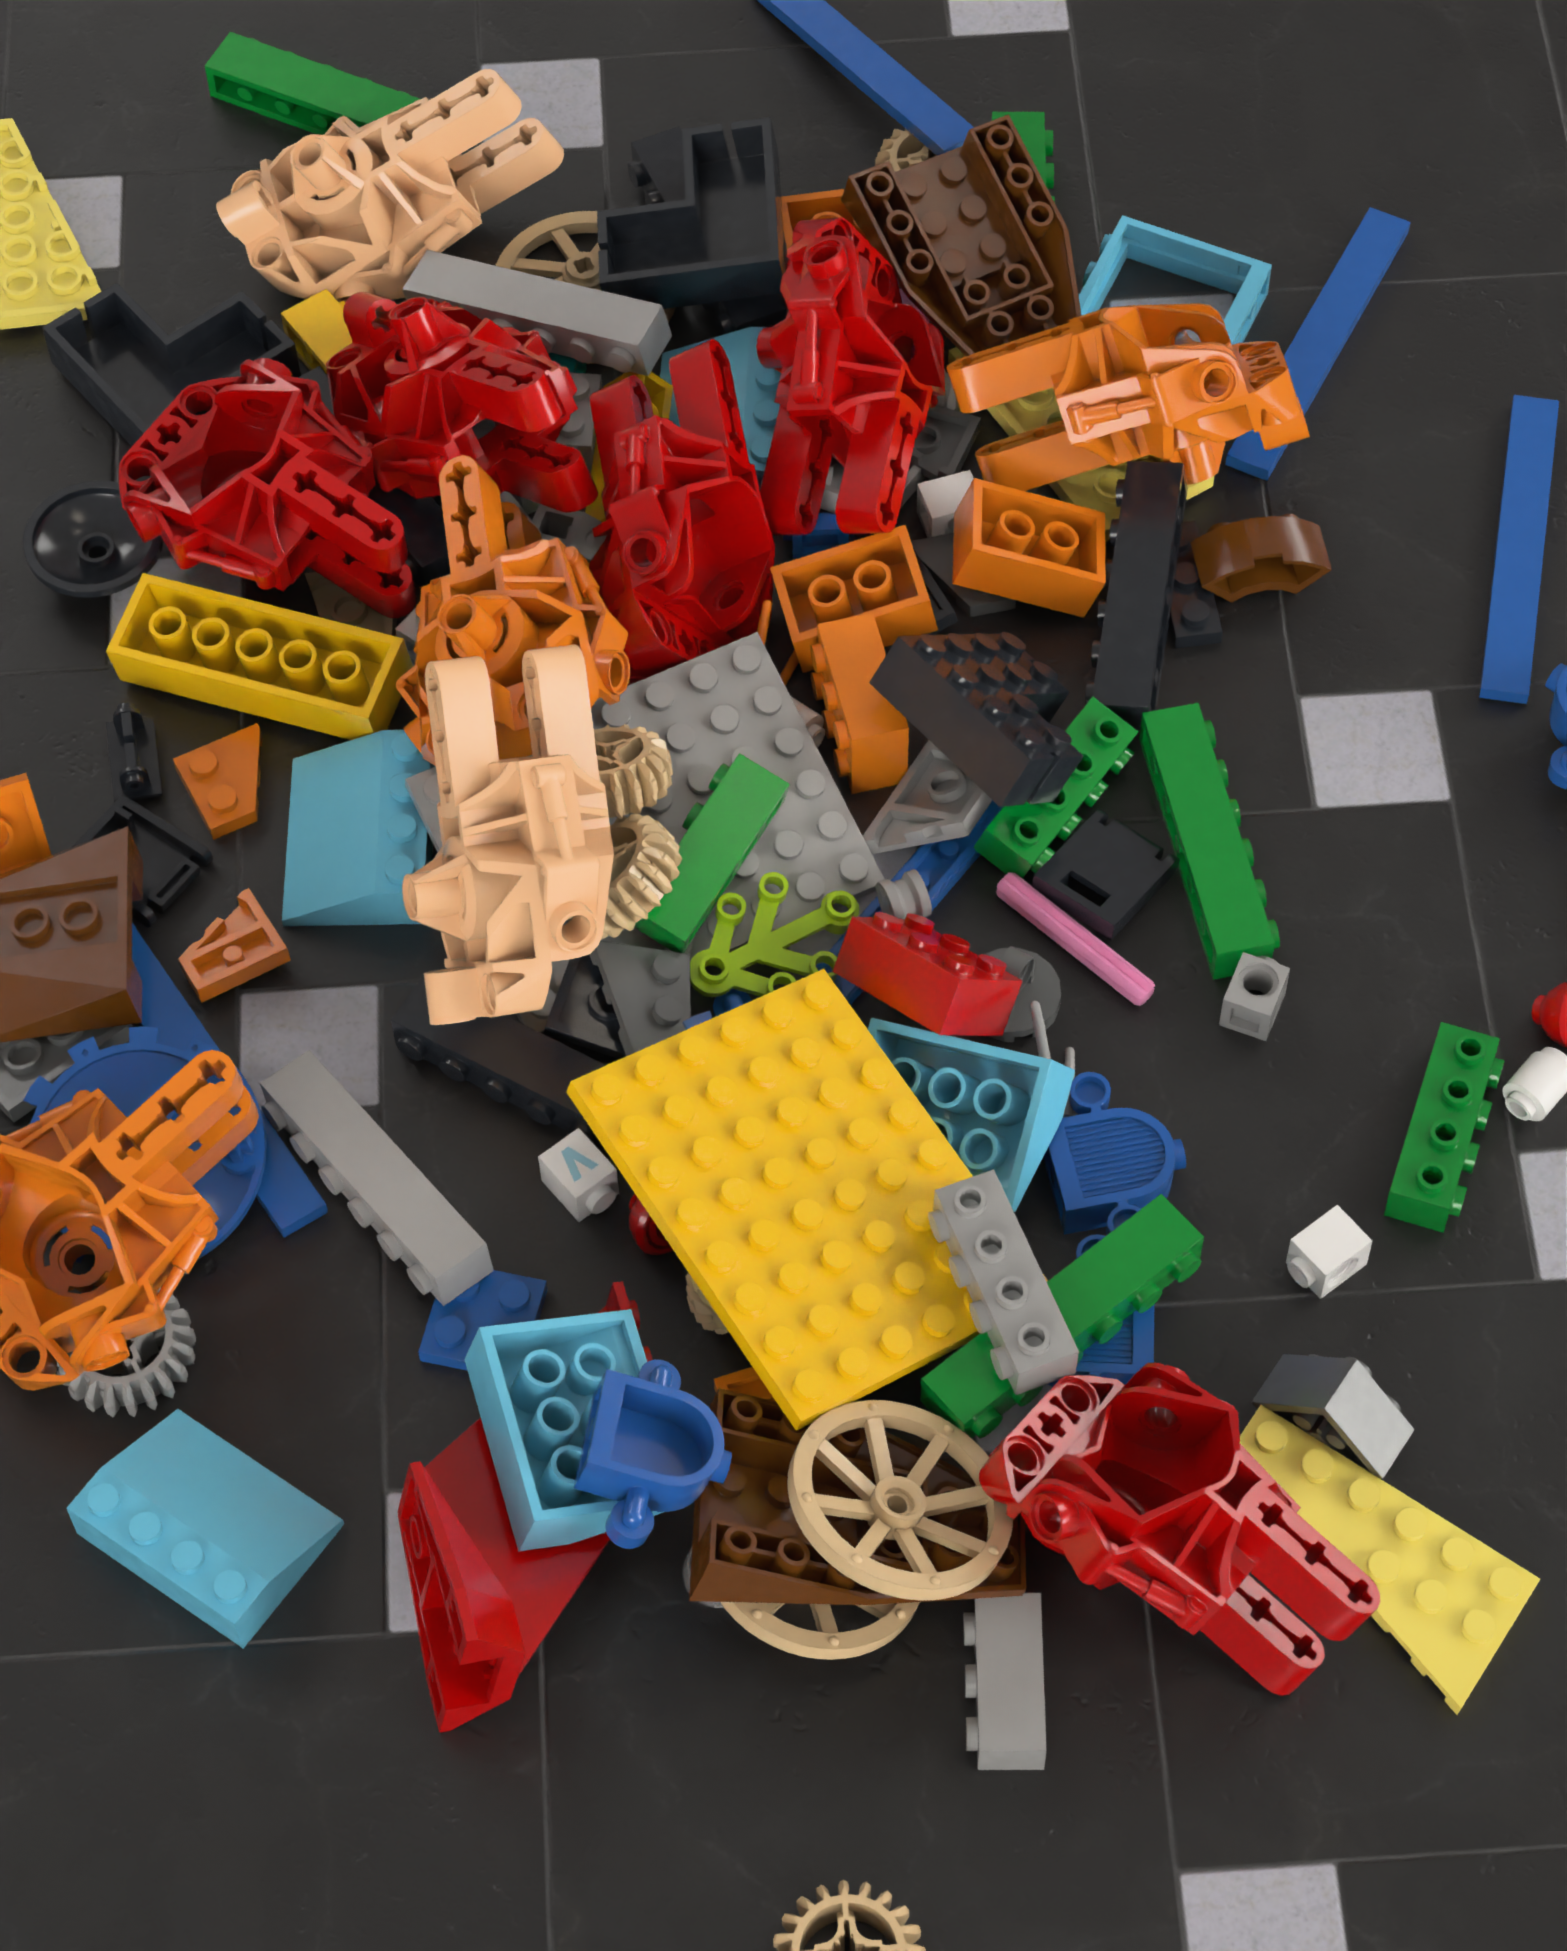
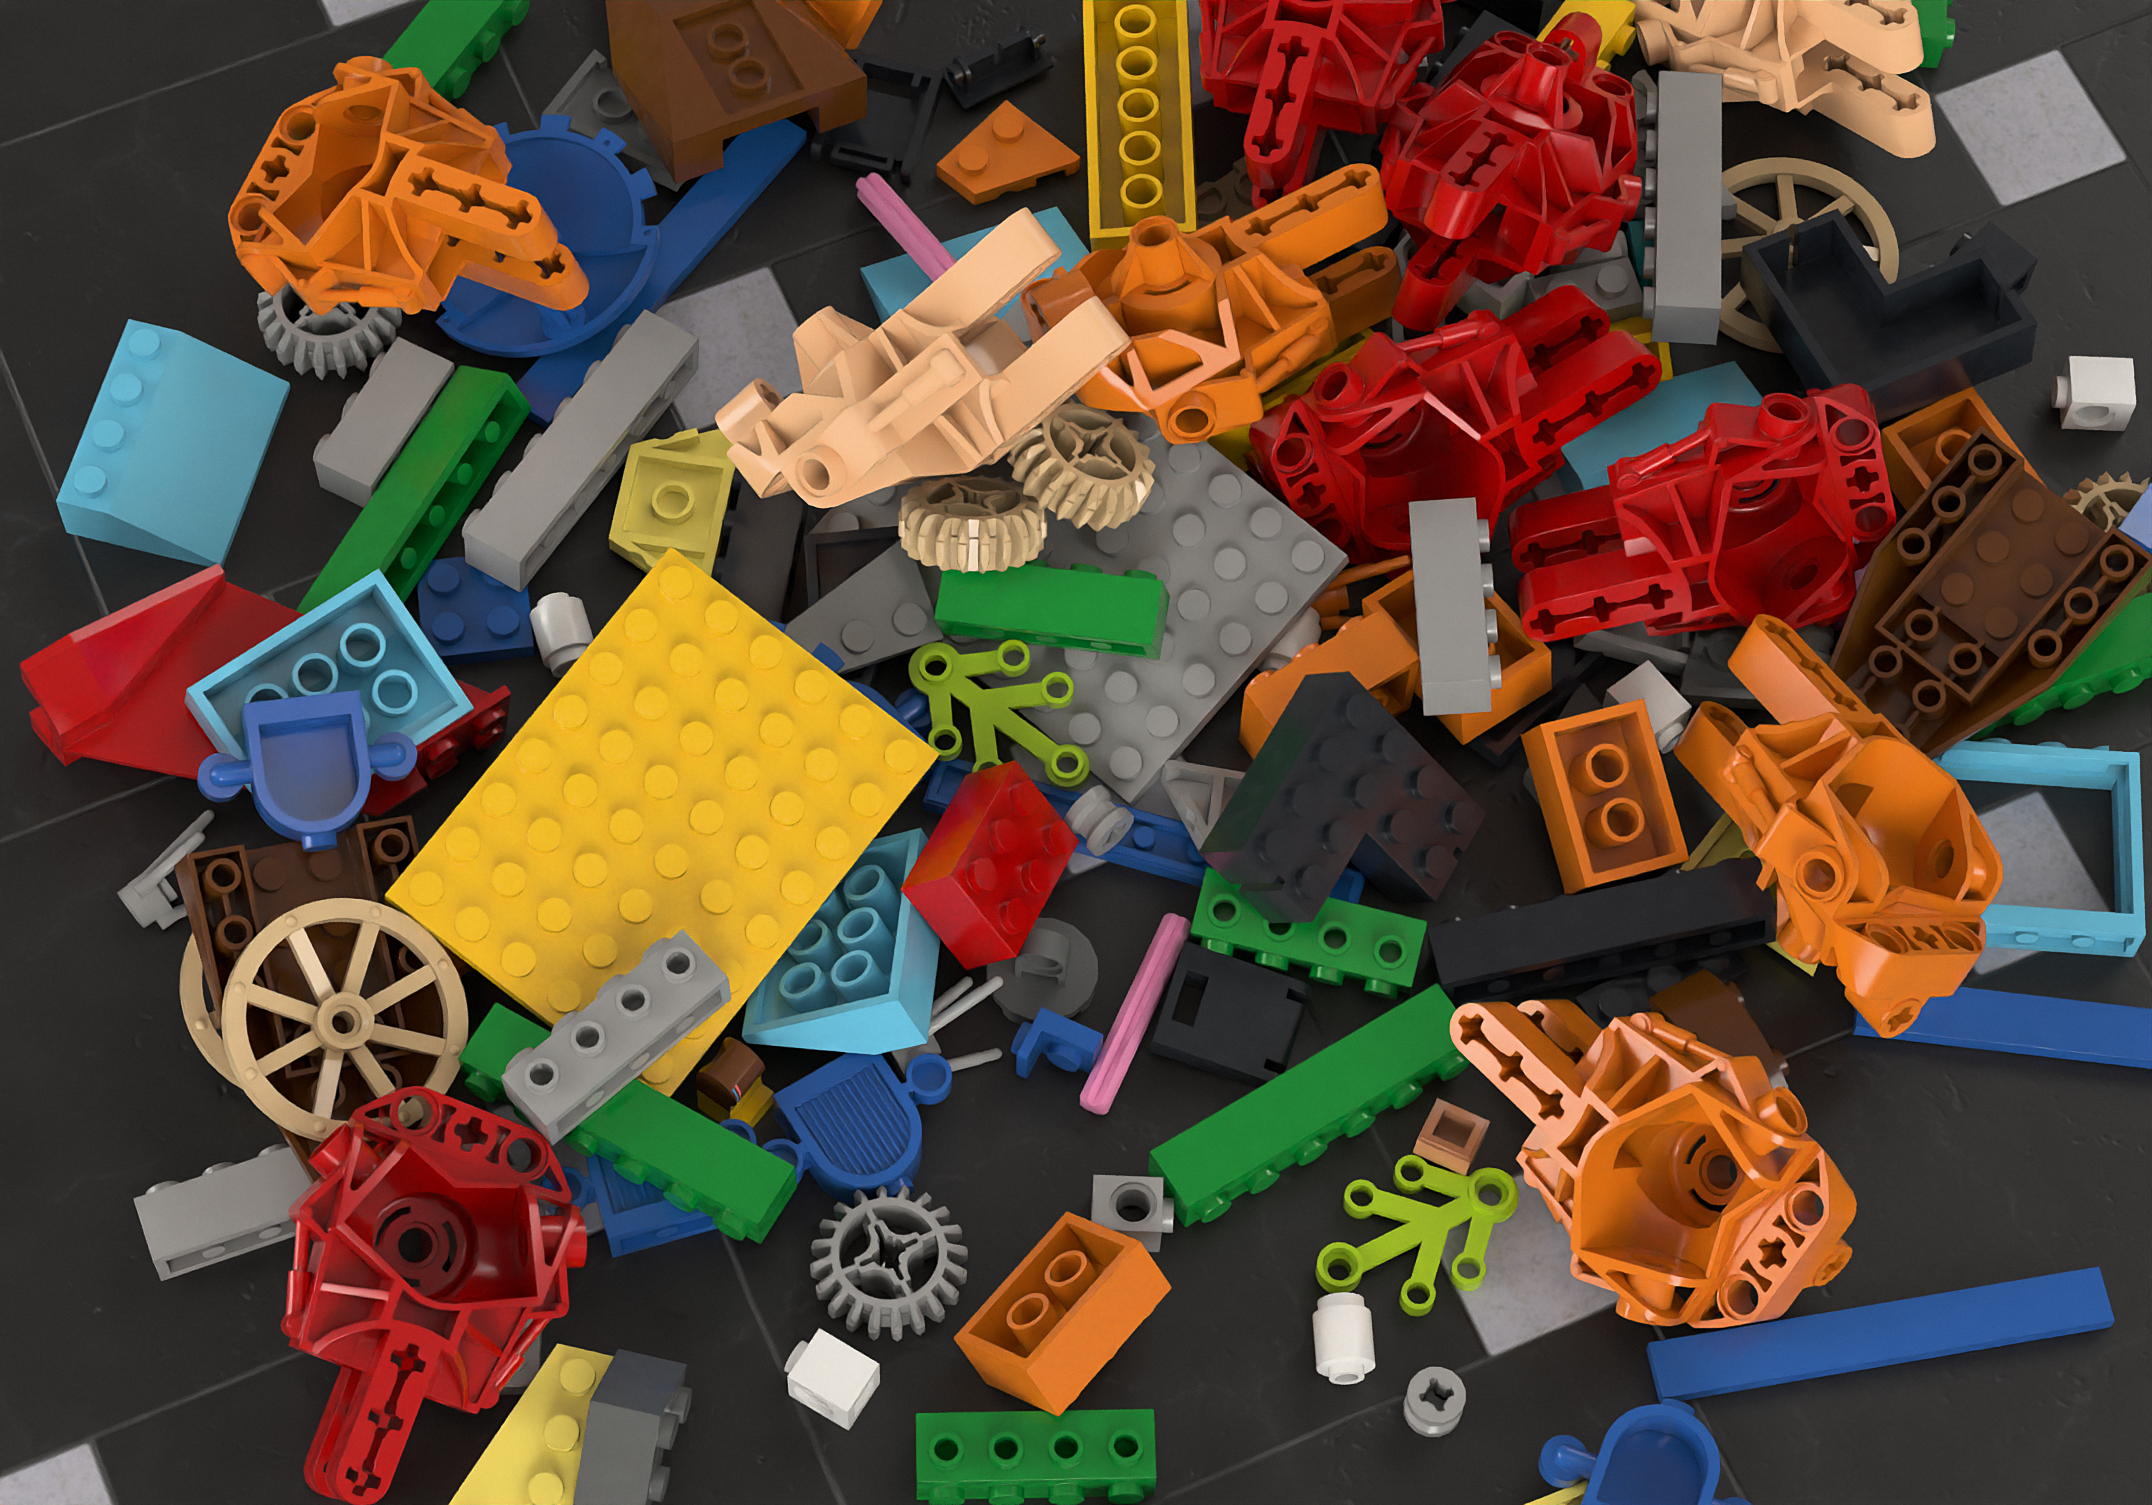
camera: 65 degrees right, 5 degrees up
(233, 950) = (804, 237): orange wing -> none
(266, 1335) = (380, 420): none -> light grey brick
(286, 858) = (904, 226): none -> bright pink axle
(365, 1327) = (427, 485): none -> green brick
(459, 1127) = (674, 497): none -> light yellow wing
(546, 1252) = (560, 631): none -> white brick
(666, 1668) = (150, 893): none -> light grey plant
(803, 139) = (2095, 393): none -> white brick
(845, 569) = (1451, 608): none -> light grey brick
(1047, 1235) = (733, 1085): none -> reddish brown leg
(1084, 997) = (1061, 1039): none -> blue bracket
(1260, 1163) = (866, 1274): none -> light grey gear
(1267, 757) = (1451, 1137): none -> nougat brick
(1321, 624) = (1614, 1149): none -> orange piece
(1336, 803) = (1423, 1226): none -> lime plant
(1339, 1057) = (1063, 1313): none -> orange brick
(1412, 883) = (1343, 1338): none -> white brick
(1473, 846) = (1433, 1415): none -> light grey wheel

